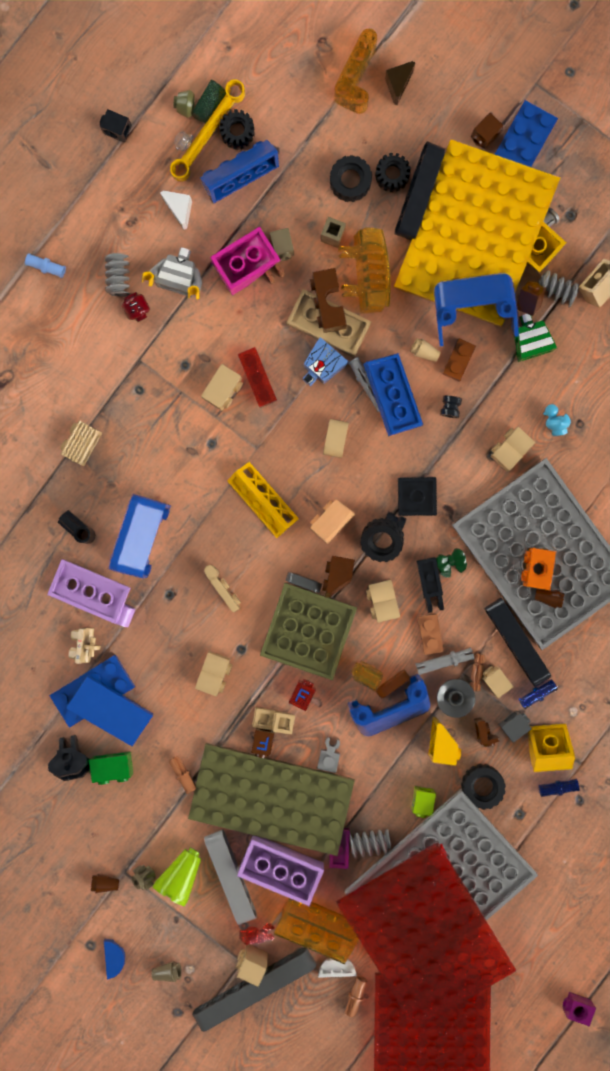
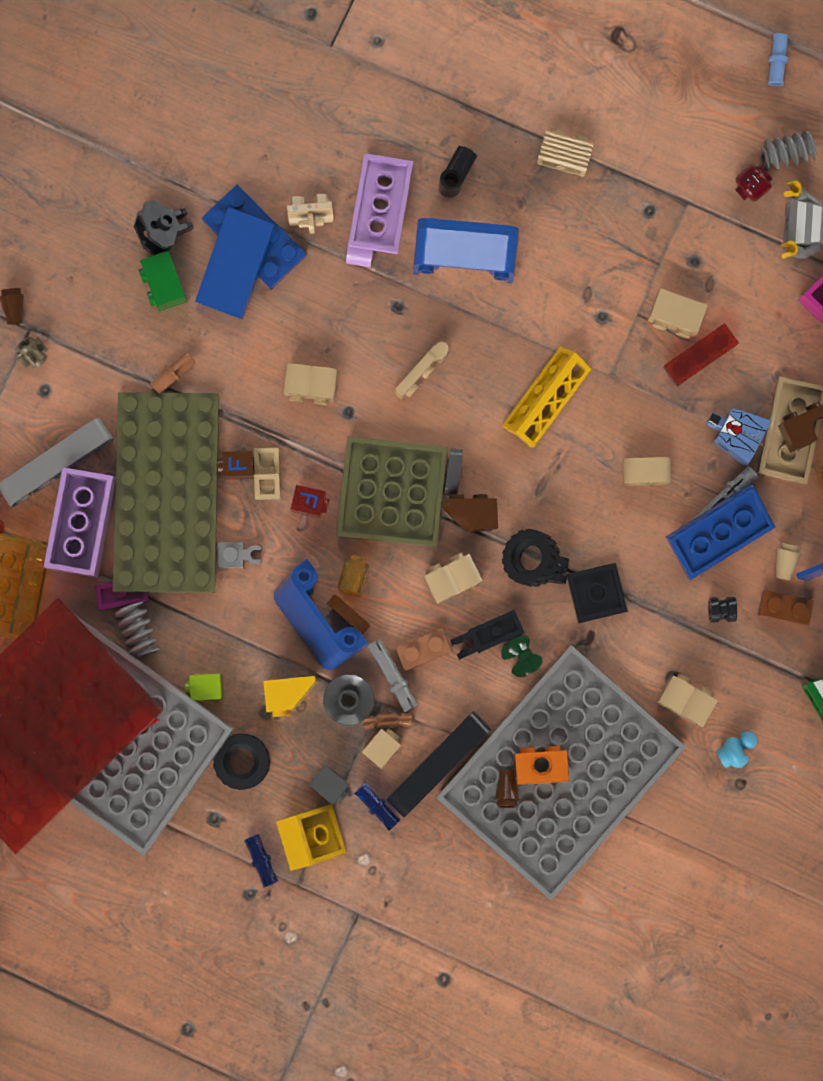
camera: 70 degrees right, 5 degrees down
(179, 877) = (43, 397): lime cone -> none
(331, 521) = (539, 488): light nougat slope -> none
(482, 730) = (314, 743): reddish brown bracket -> none

